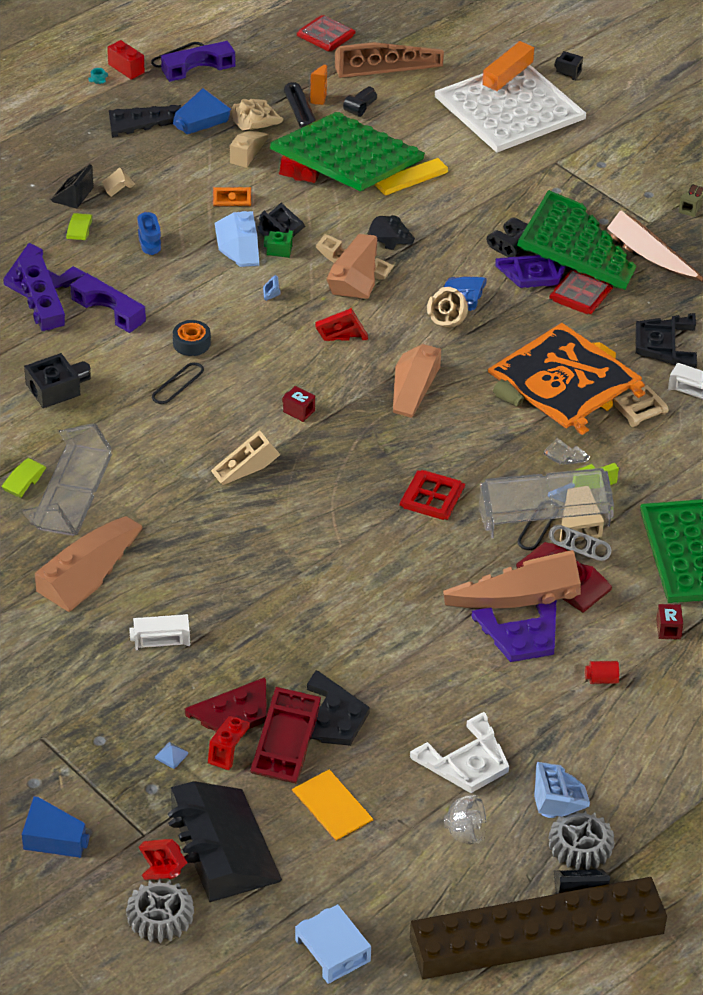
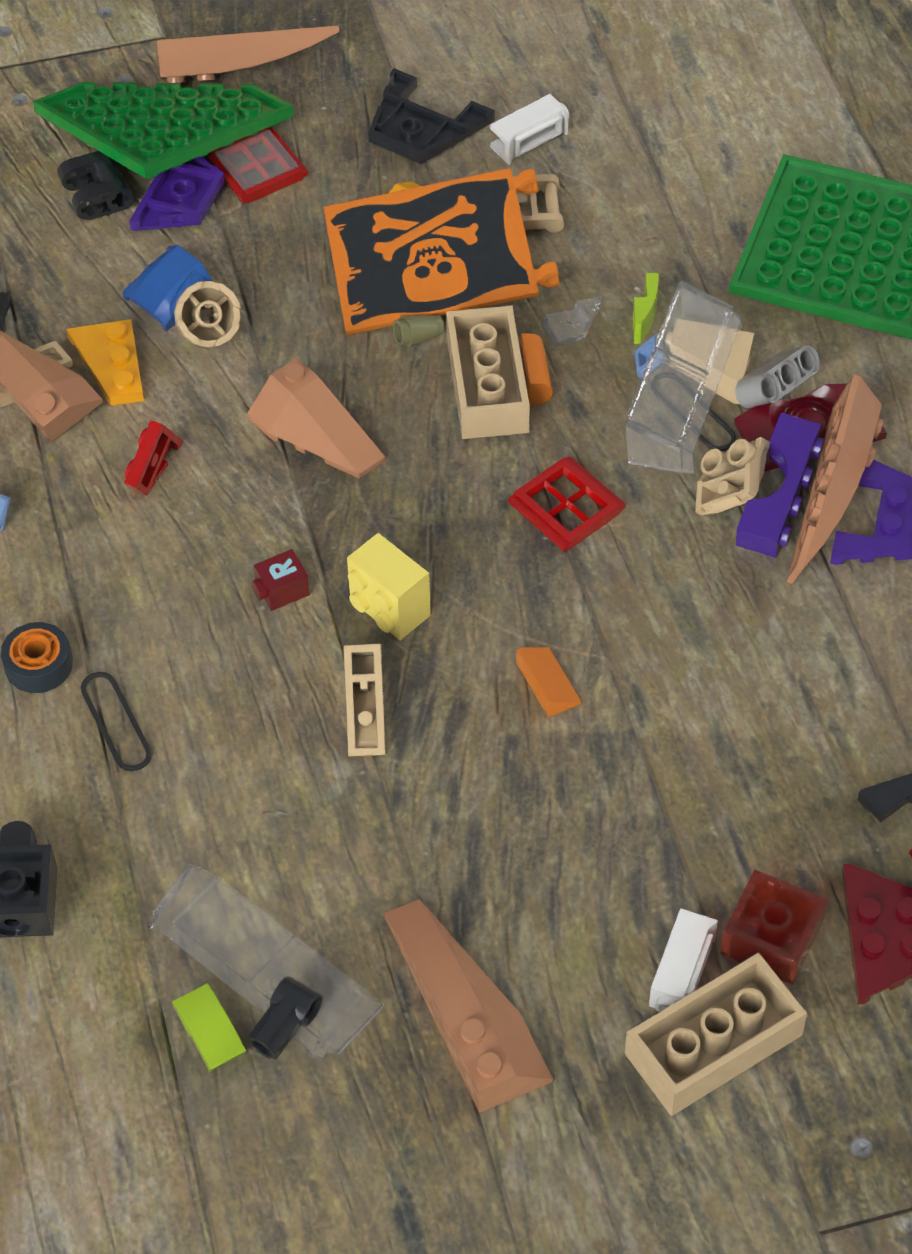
camera: 60 degrees left, 10 degrees up
(40, 497) = (289, 1009): none -> black piece
(123, 653) = (715, 1033): none -> tan brick
(201, 656) = (774, 922): none -> clear red brick
(307, 525) = (546, 679): none -> orange slope
(315, 438) = (388, 586): none -> light yellow brick
(401, 292) = (112, 359): none -> light orange wing
(472, 569) = (766, 520): none -> dark purple arch
(493, 426) = (487, 372): none -> tan brick
(496, 548) = (731, 476): none -> tan slope
(514, 446) = (535, 369): none -> orange brick

